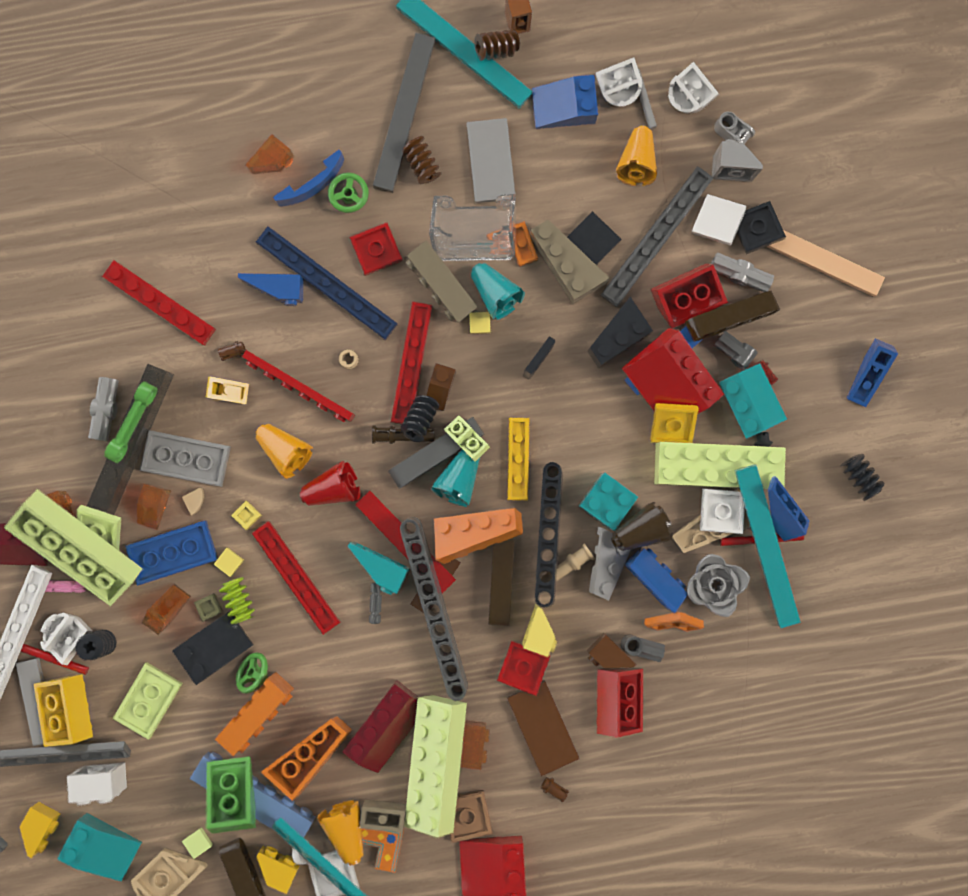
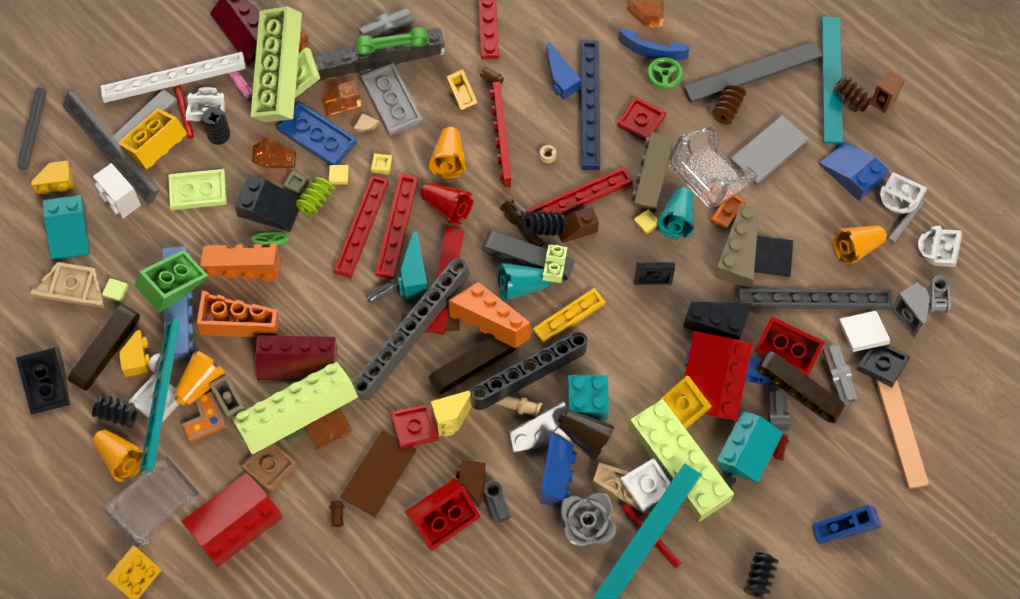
camera: 55 degrees right, 20 degrees down
(320, 547) = (396, 226): none -> red plate
(674, 620) = (537, 505): orange tile -> none
(785, 513) = (684, 527): blue slope -> none

